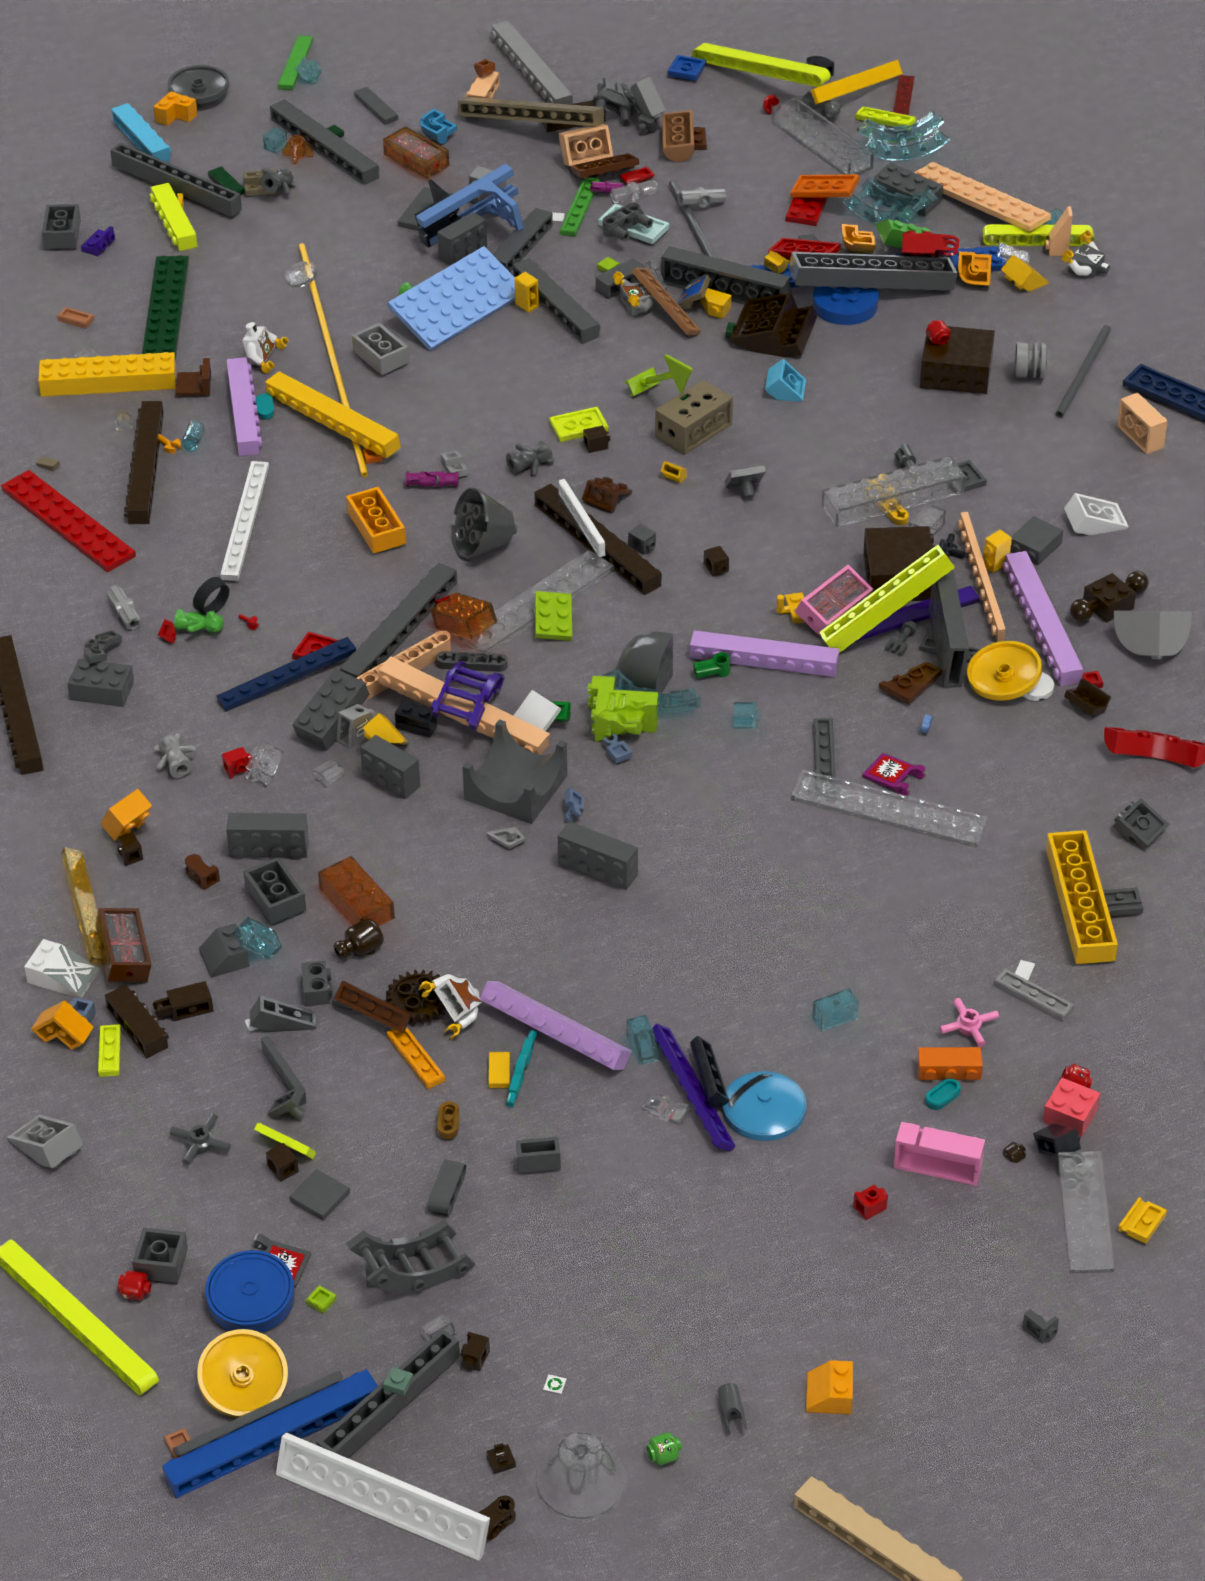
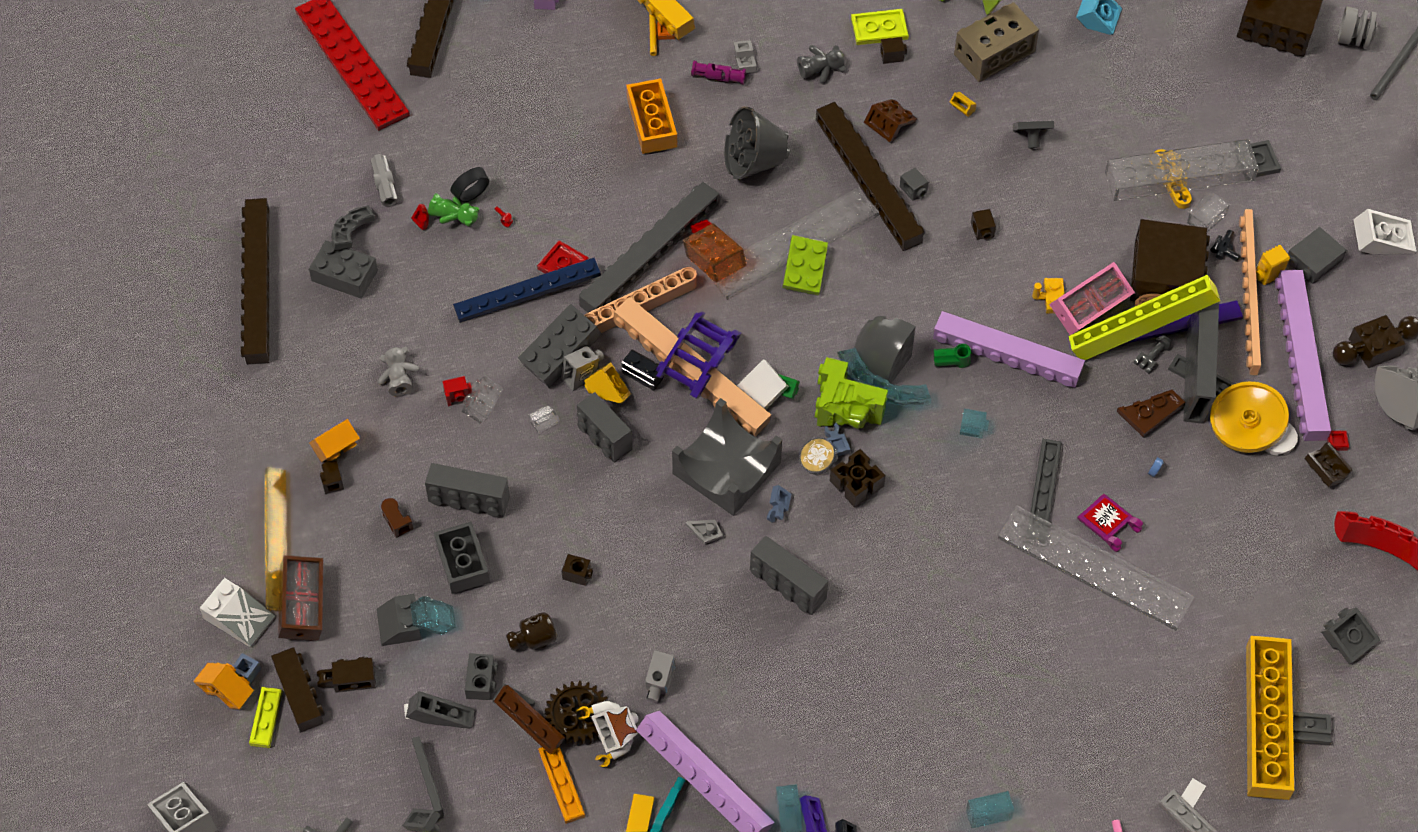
camera: 10 degrees right, 15 degrees up
(244, 521) = (523, 93): white plate -> none
(355, 892) = (541, 575): clear orange brick -> none
(391, 883) = (574, 562): none -> dark brown brick
(472, 659) = (714, 303): dark grey beam -> none
(492, 957) = (662, 669): none -> light grey torso
(581, 518) = (856, 153): white tile -> none
(602, 761) = (818, 456): none -> tile
(644, 771) = (857, 478): none -> dark brown brick
(905, 456) = (1203, 128): dark grey arm -> none

